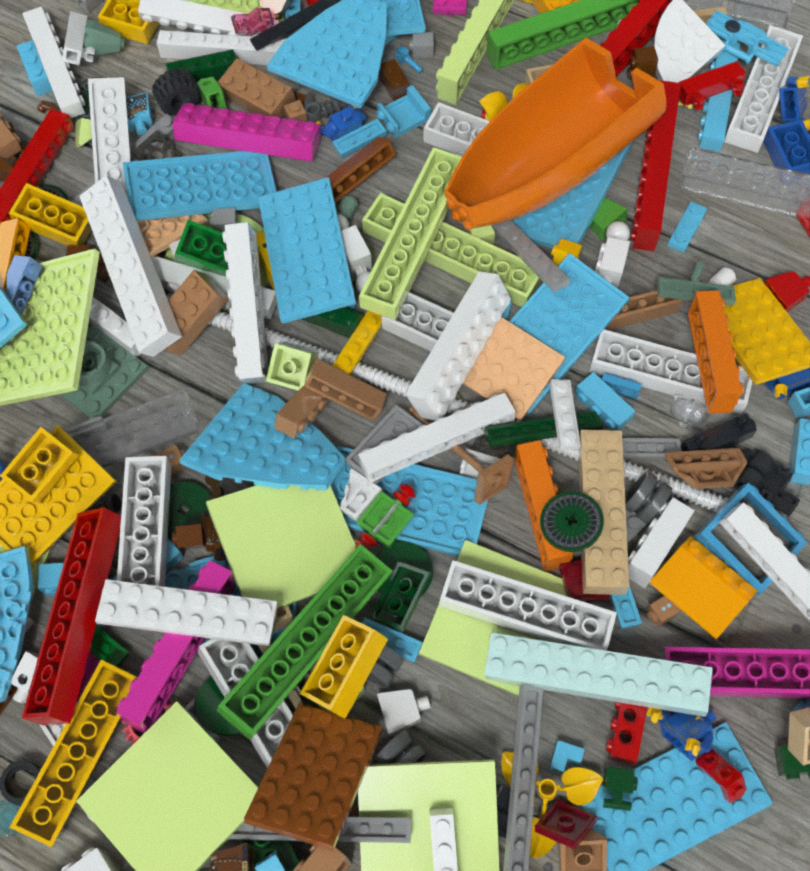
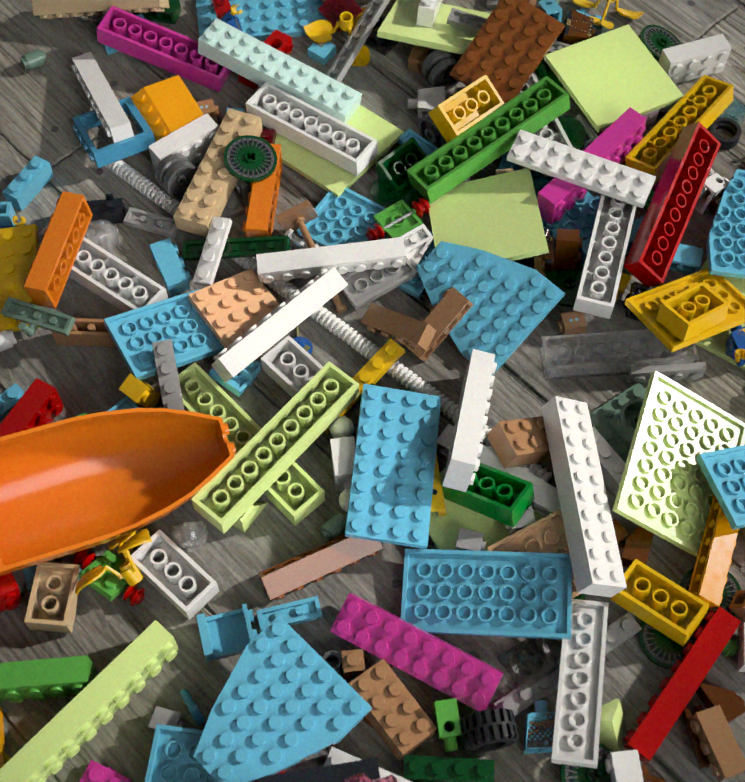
camera: 165 degrees left, 5 degrees down
(21, 280) = (699, 525): medium blue slope -> none
(290, 365) = (440, 366): yellowish green brick -> none
(343, 122) = (310, 626): blue torso -> none
(393, 79) = (219, 671): reddish brown brick -> none
(614, 253) = (93, 381): white brick -> none
(619, 783) = (295, 19): dark green brick -> none
(622, 386) = (148, 272): dark azure plate -> none
(708, 467) = (121, 180): medium nougat wedge -> none
(769, 481) = (76, 170): black plate -> none

